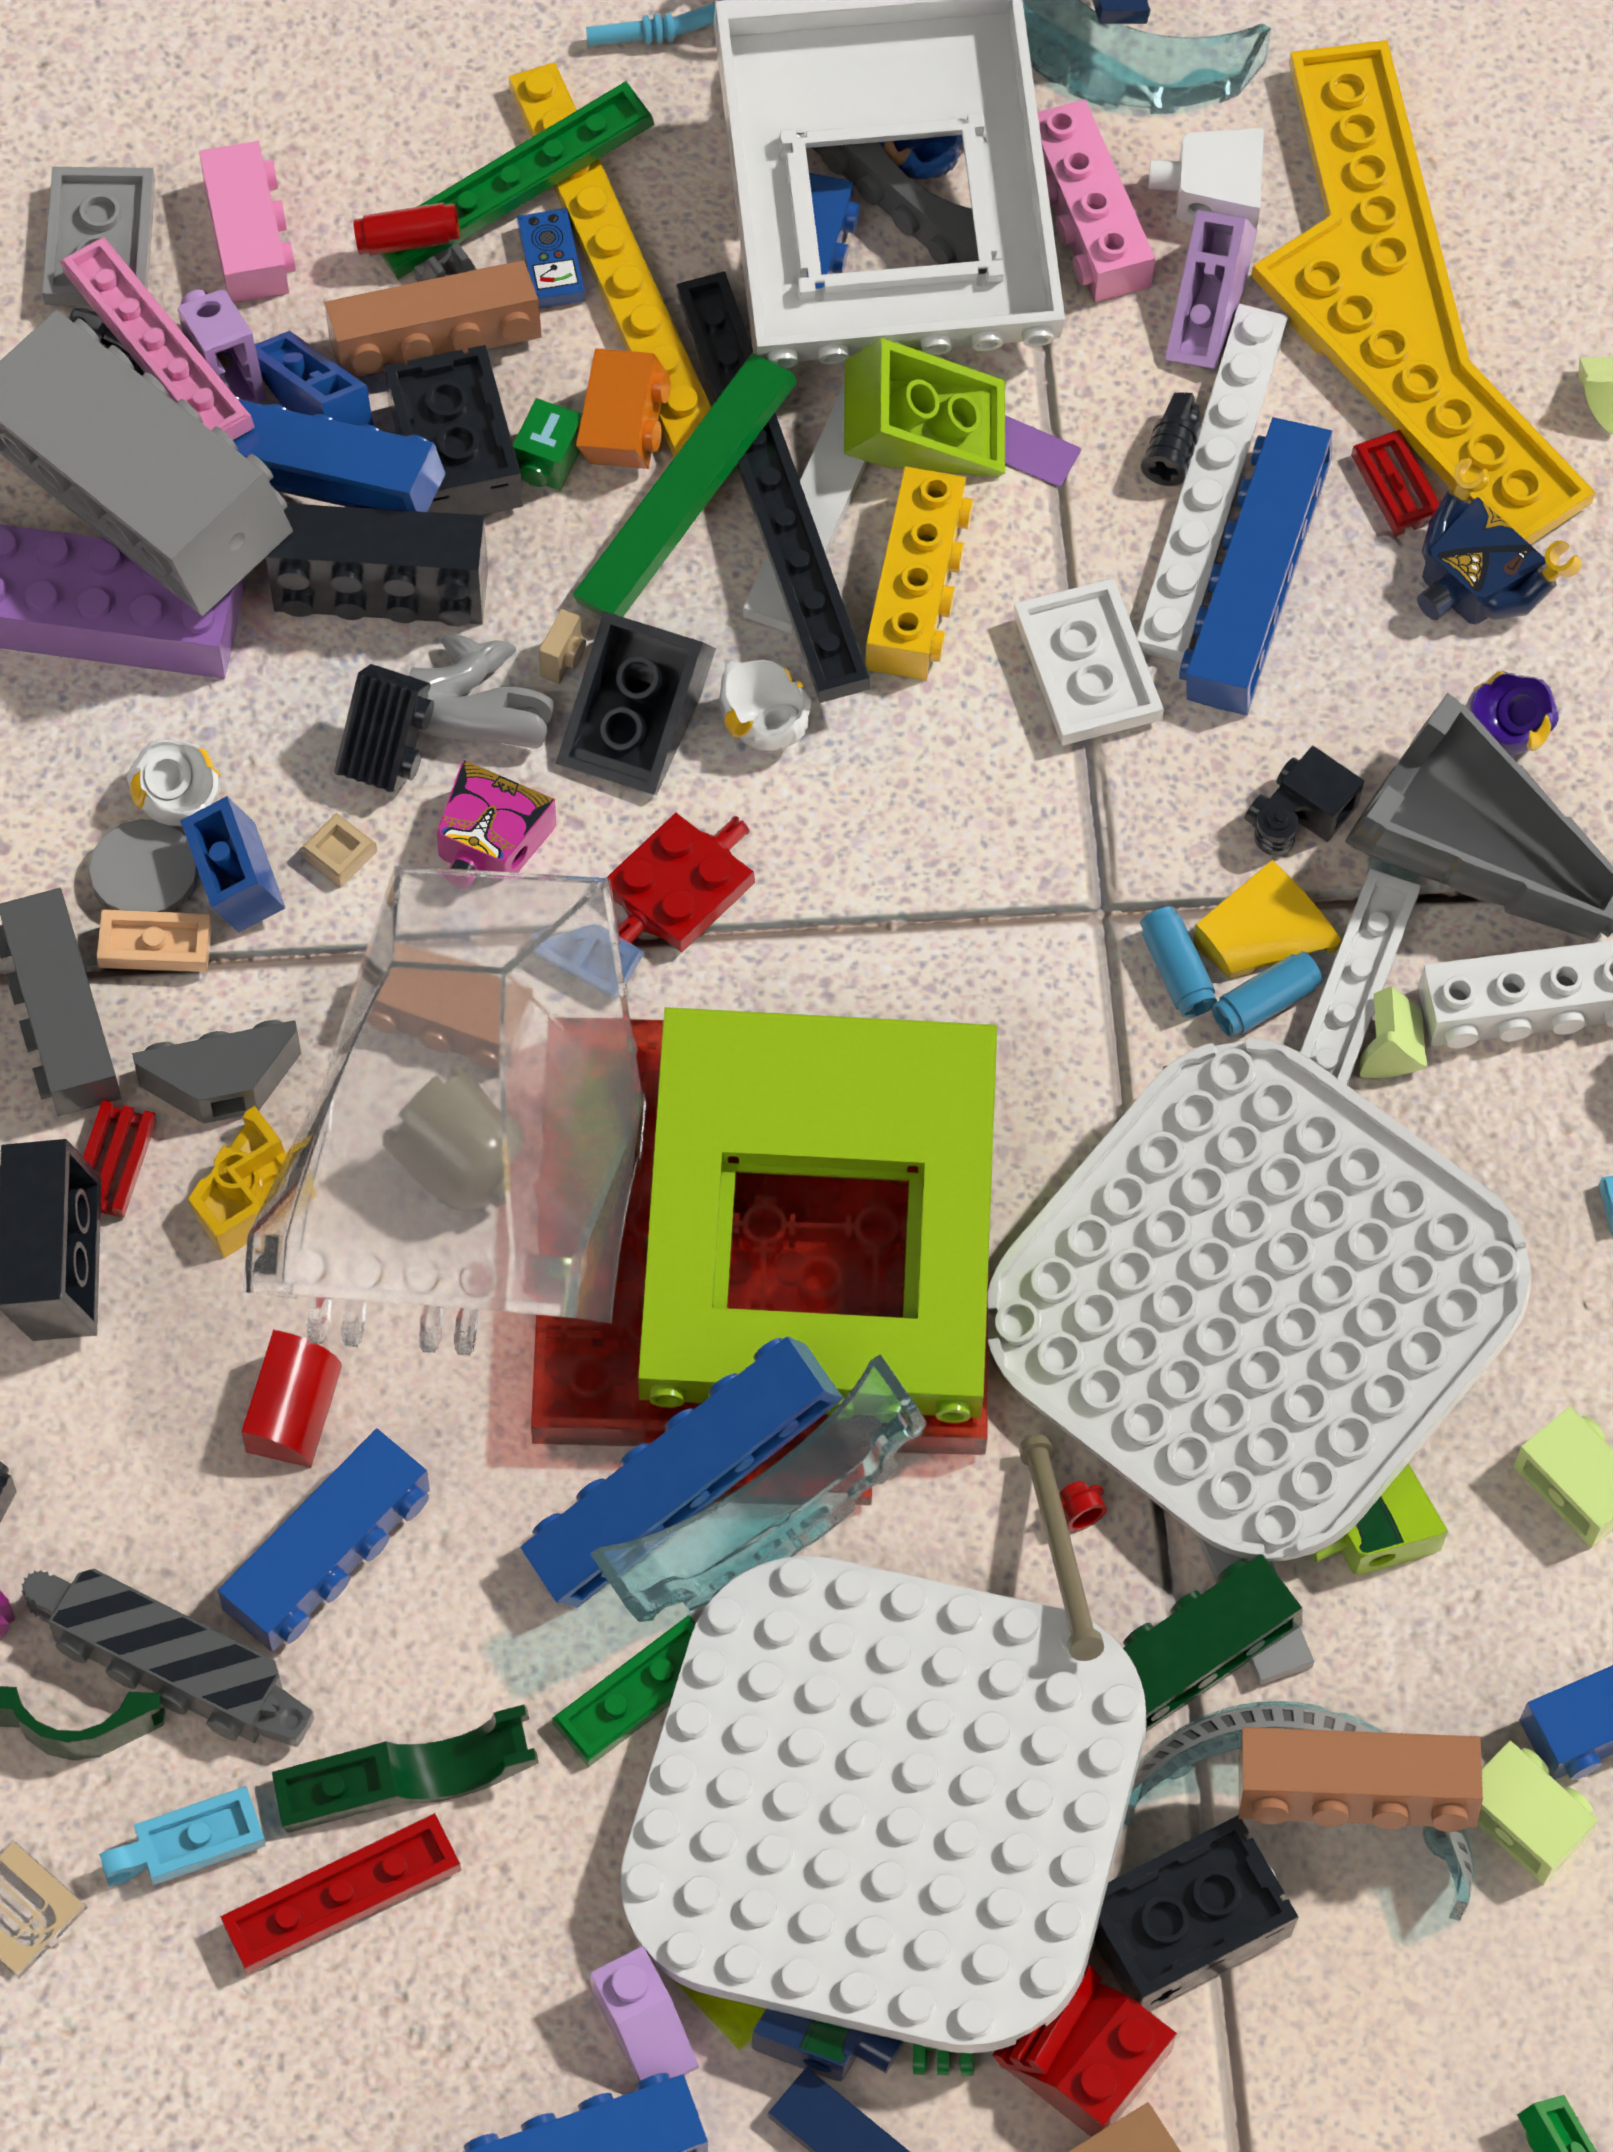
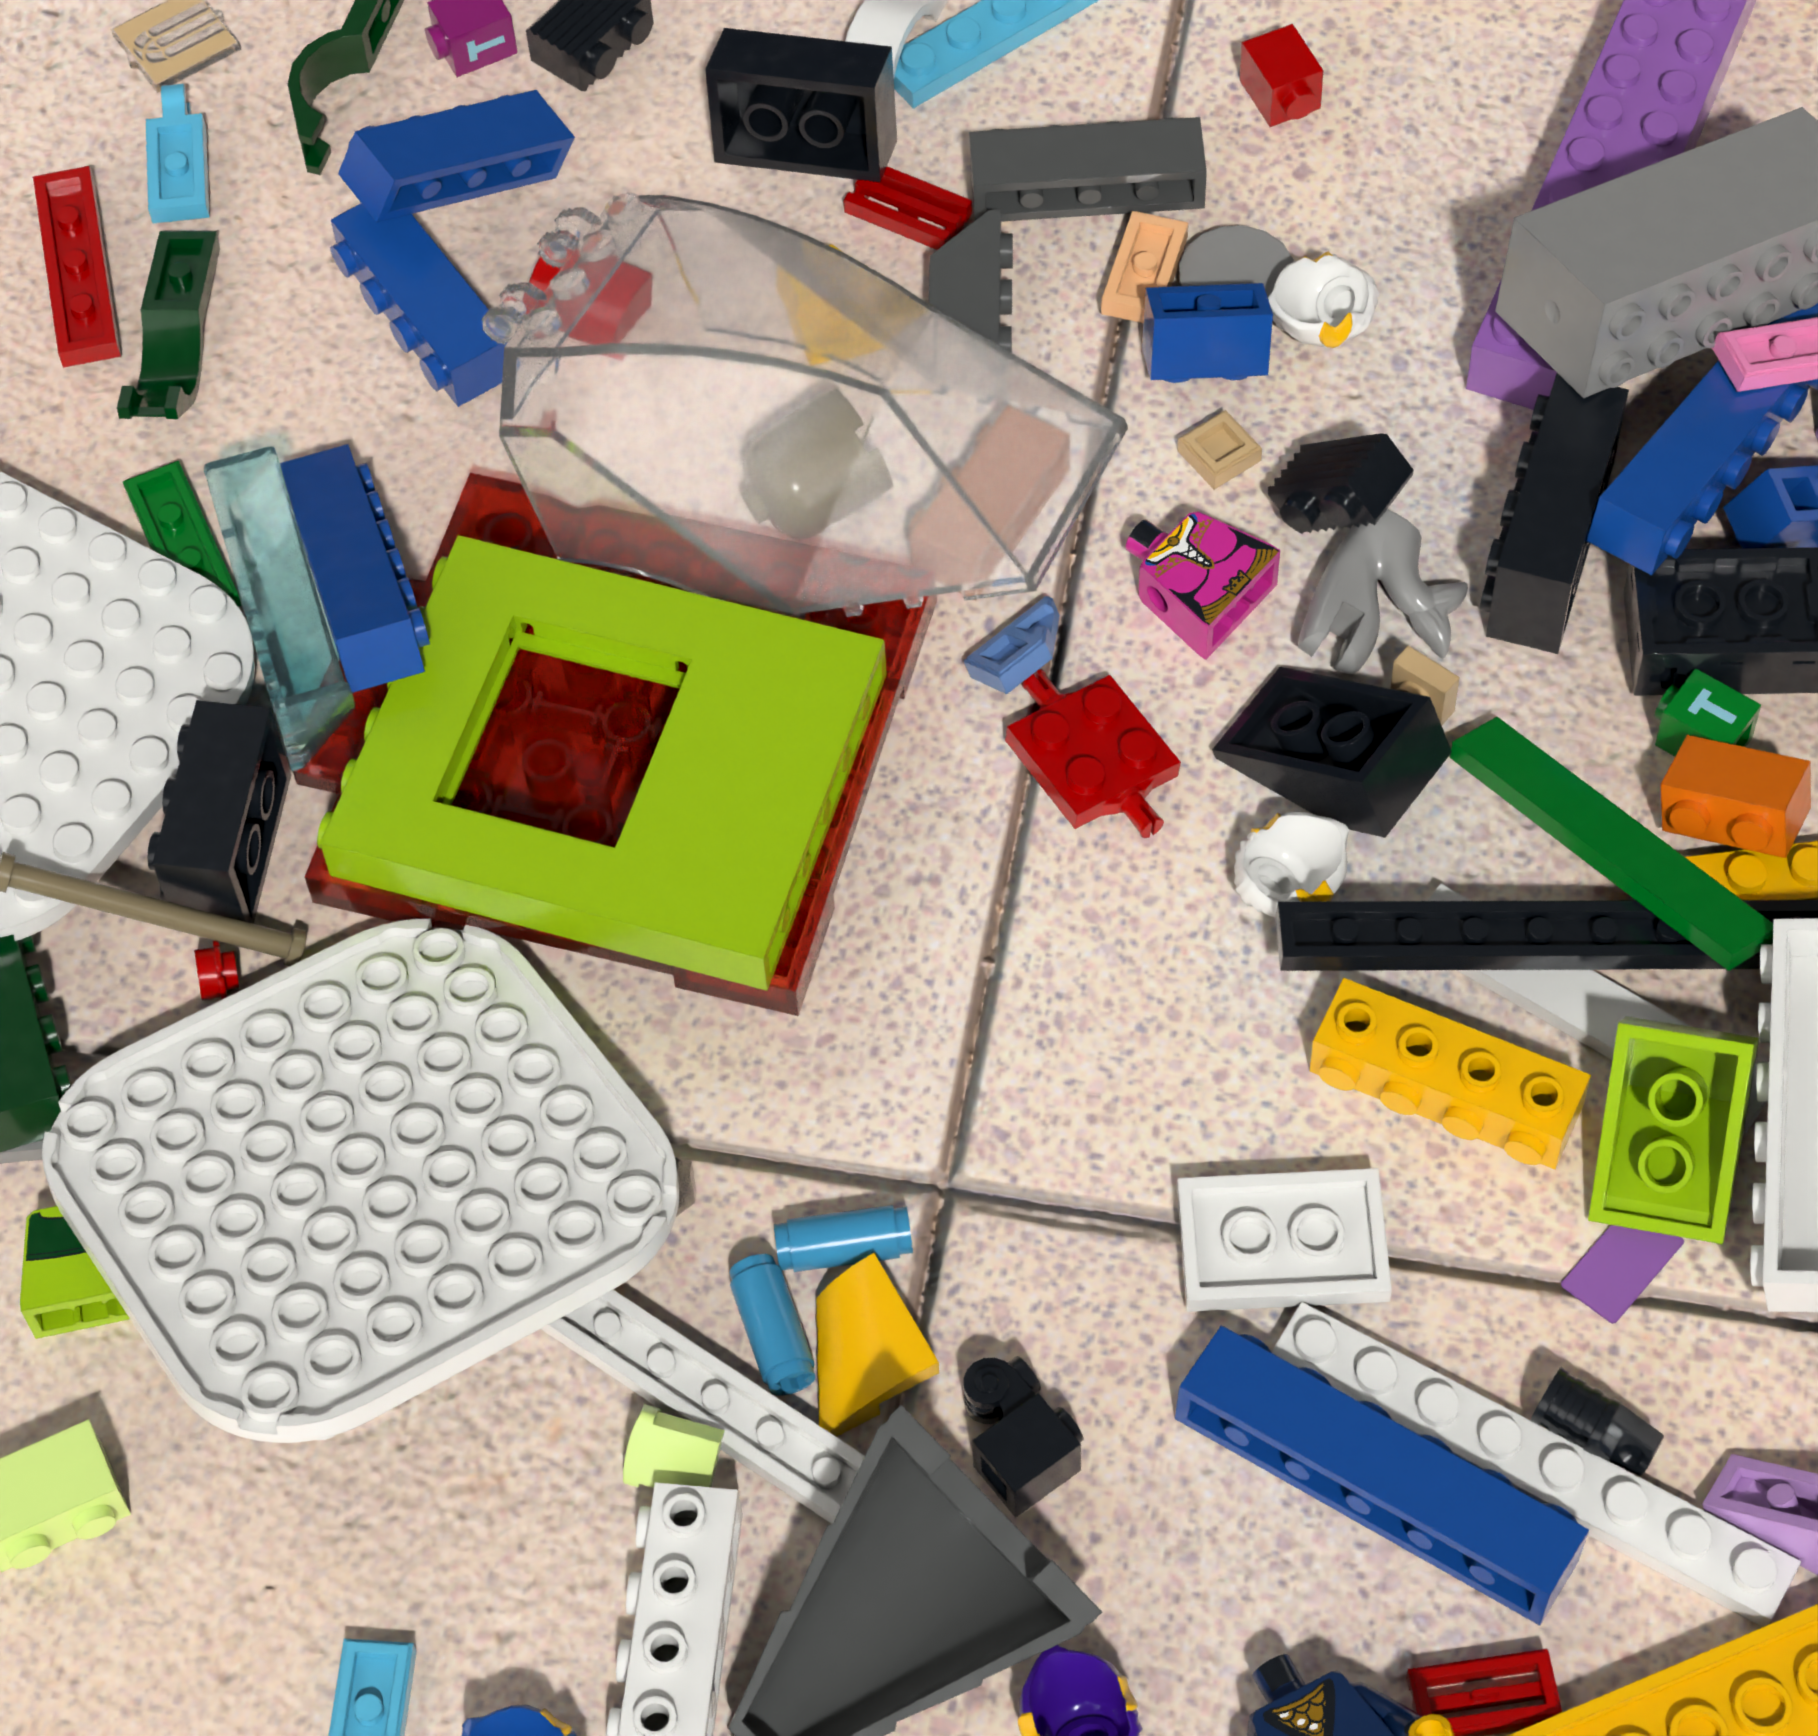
camera: 110 degrees right, 5 degrees down
(168, 1654) = (298, 207): dark grey hinge -> none
(172, 1533) = (455, 155): none -> blue brick
(950, 1522) = (221, 810): none -> black brick

